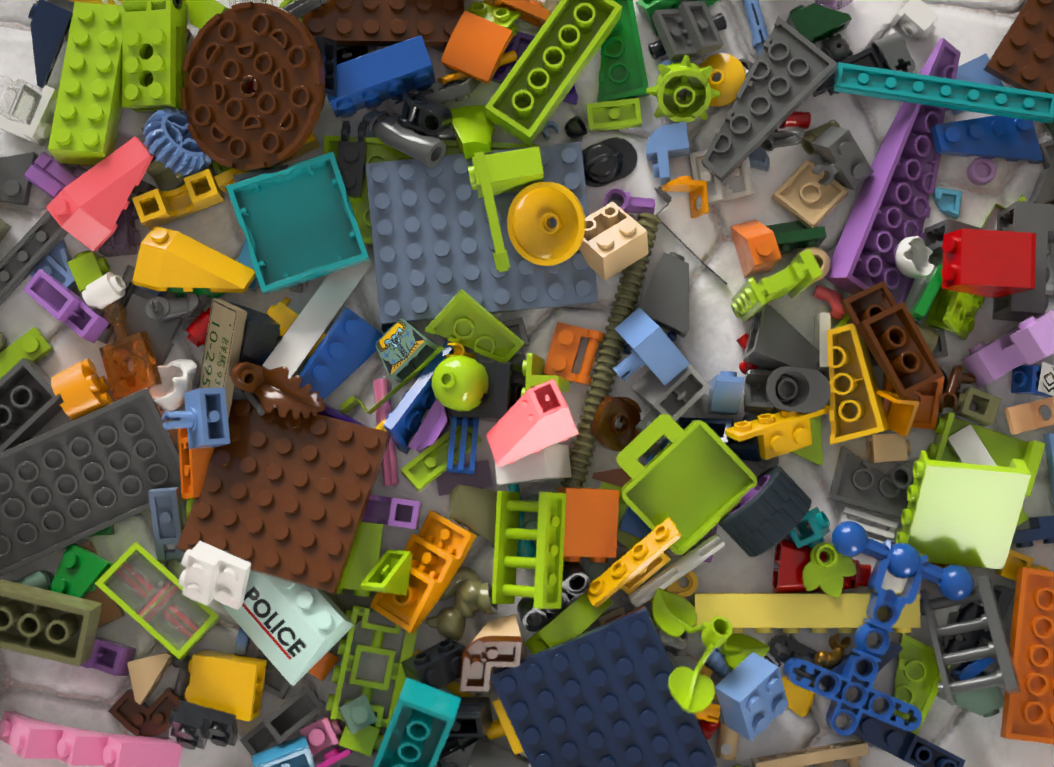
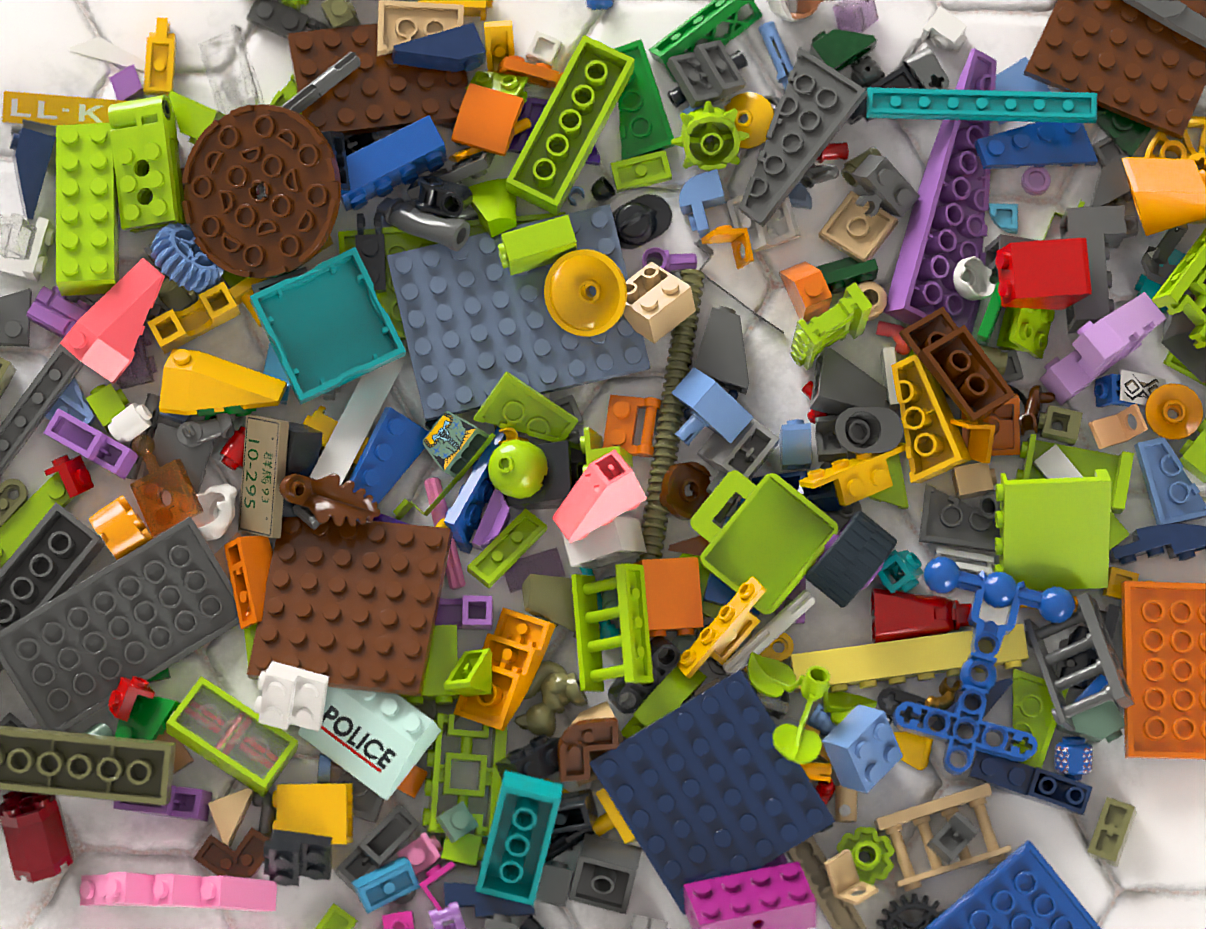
camera: 10 degrees left, 5 degrees down
(47, 332) = (73, 474): none -> red bracket
(59, 554) = (123, 698): none -> red bracket
(166, 522) = (229, 655): sand blue plate -> none
(203, 417) = (257, 537): medium blue brick -> none
(464, 424) = (528, 512): blue tile -> none
(500, 256) = (542, 331): lime piece -> none
(827, 574) = (925, 615): lime plate -> none
(949, 727) = (1073, 757): none -> blue head

